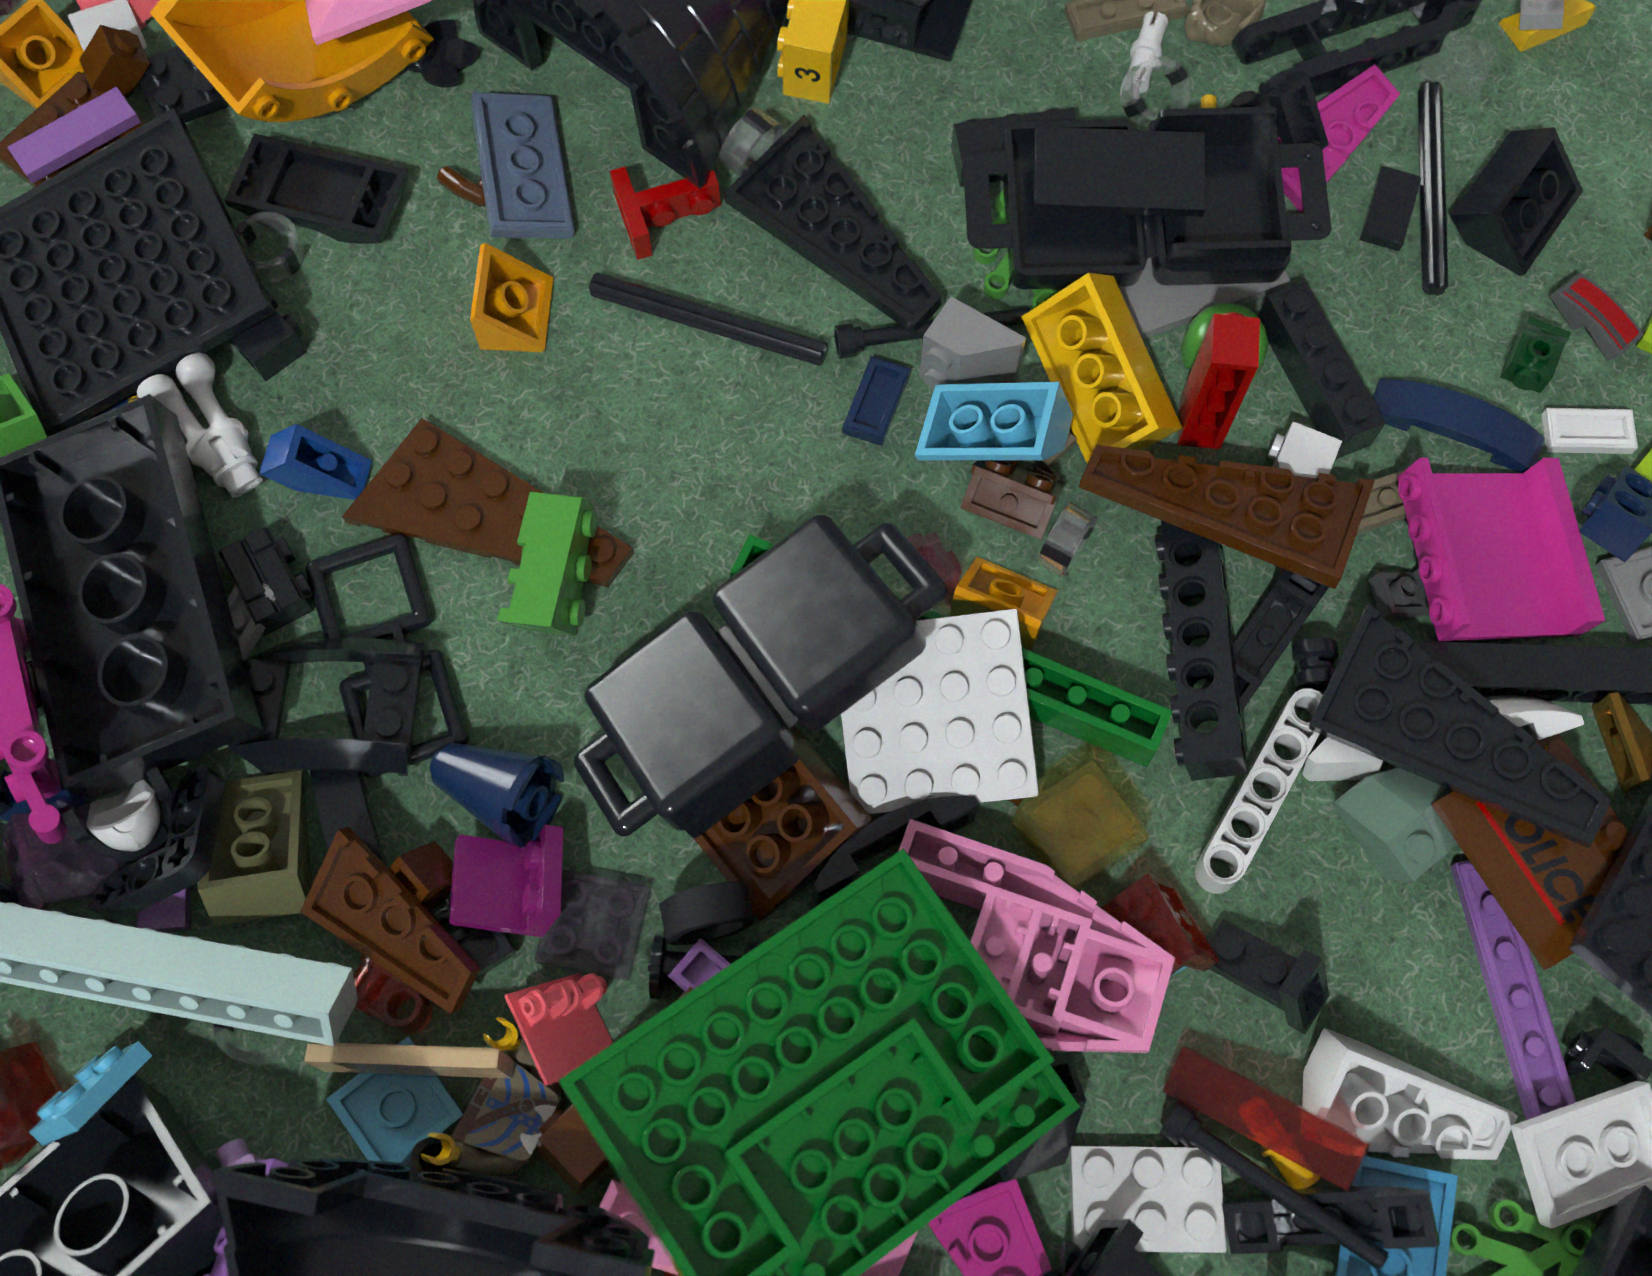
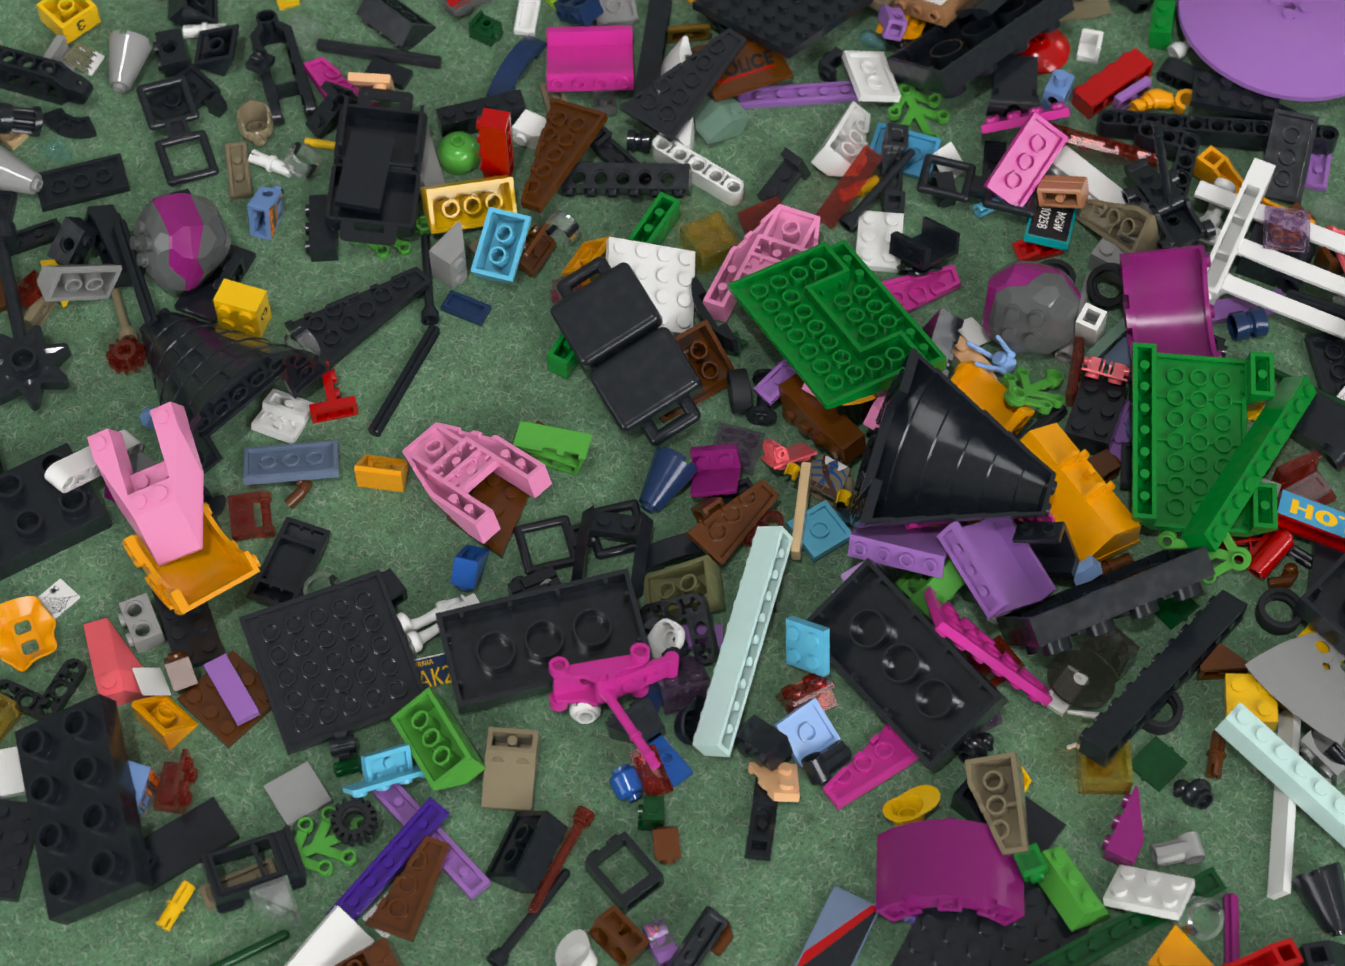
camera: 85 degrees left, 10 degrees down
(413, 113) = (243, 518): none -> clear red plate
(500, 409) = (456, 461): none -> bright pink wedge
(611, 142) = (282, 416): none -> white slope
(1034, 50) = (268, 204): none -> medium blue torso
(1339, 176) = (369, 80): none -> light nougat wing

